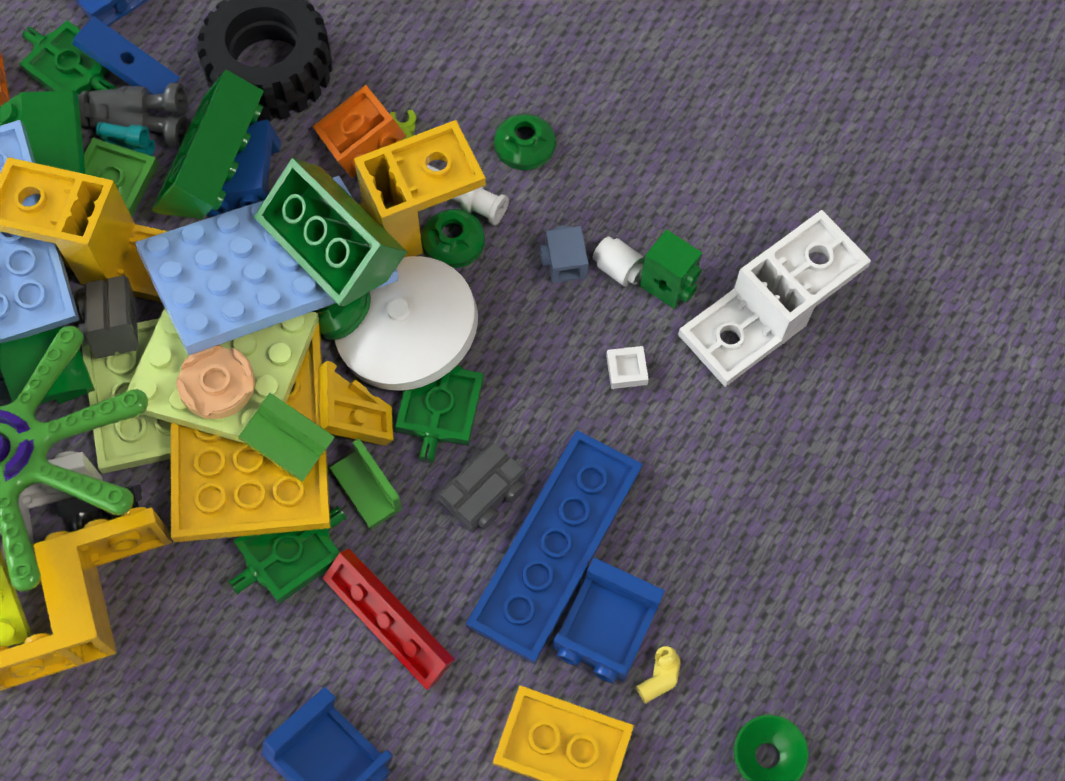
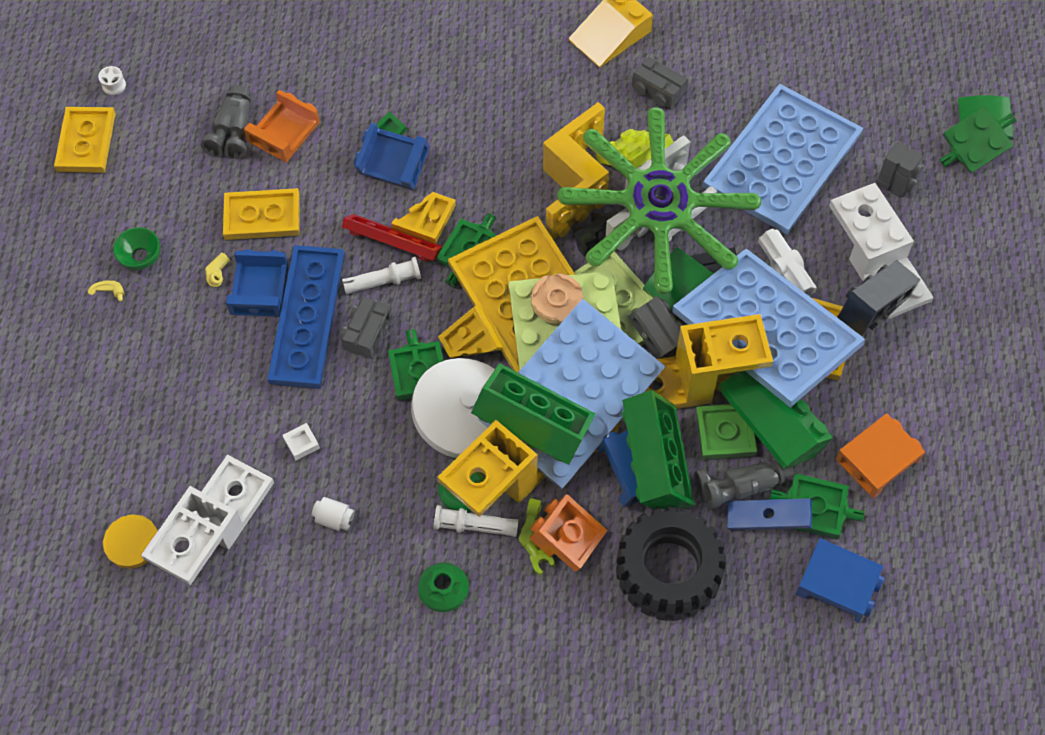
camera: 160 degrees right, 5 degrees down
(131, 137) = (724, 460): teal piece -> none
(286, 437) = (495, 286): bright green panel -> none
(324, 633) = (427, 218): none -> yellow wing
(366, 486) = (440, 303): bright green panel -> none
(411, 558) = (394, 273): none -> white pin
(565, 254) = (375, 502): sand blue brick -> none
(671, 269) = (289, 507): green brick -> none
(826, 719) = (108, 286): none -> light yellow piece
(875, 329) = (128, 539): none -> yellow tile

